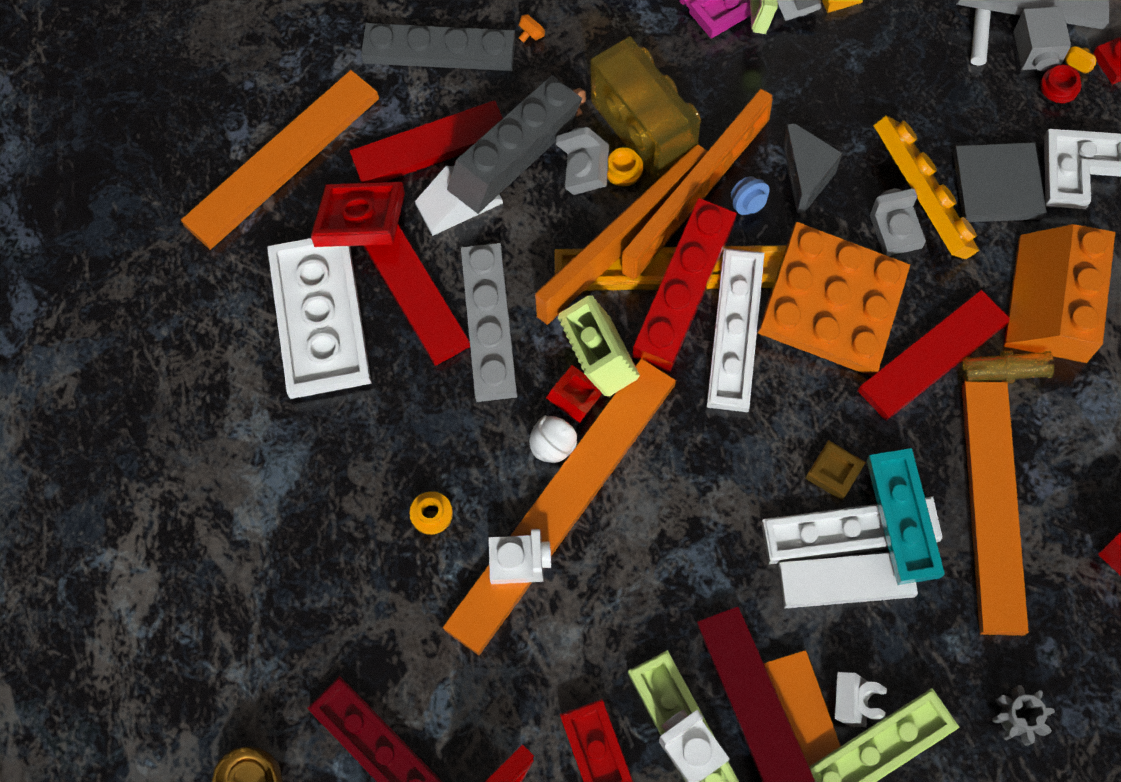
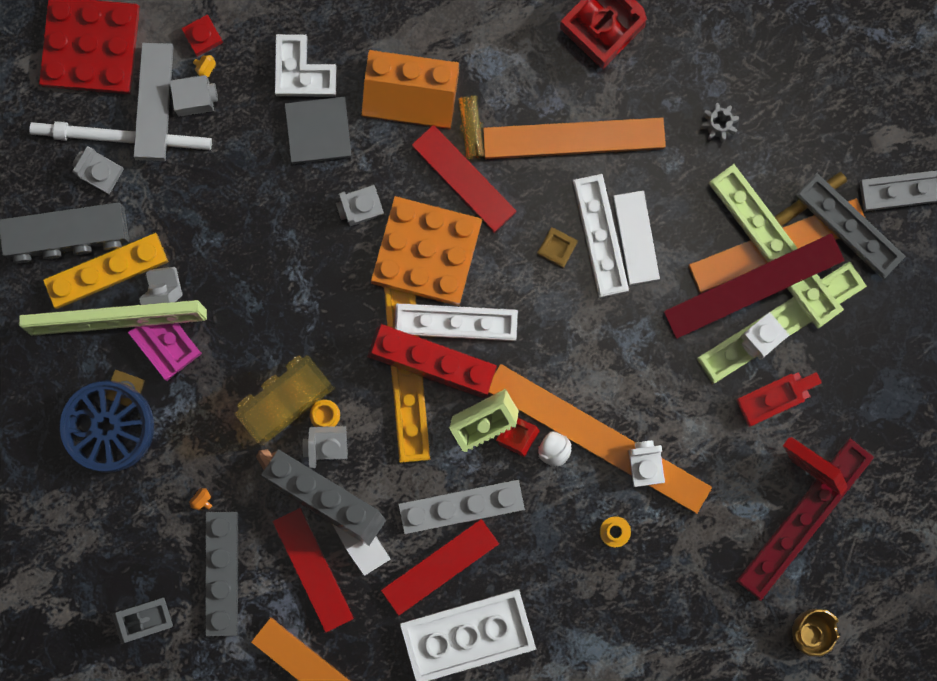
camera: 100 degrees left, 15 degrees up
(358, 214) = (385, 616): red tile -> none
(611, 242) = (389, 409): orange tile -> none
(696, 185) = (341, 355): orange tile -> none
(749, 195) = (345, 316): medium blue plate -> none
(809, 164) = (318, 272): dark grey slope -> none
(853, 698) = (721, 232): white tile -> none
(905, 517) = (593, 199): teal plate -> none
(934, 198) = (323, 188): light orange plate -> none
(1061, 84) = (230, 82): red plate -> none

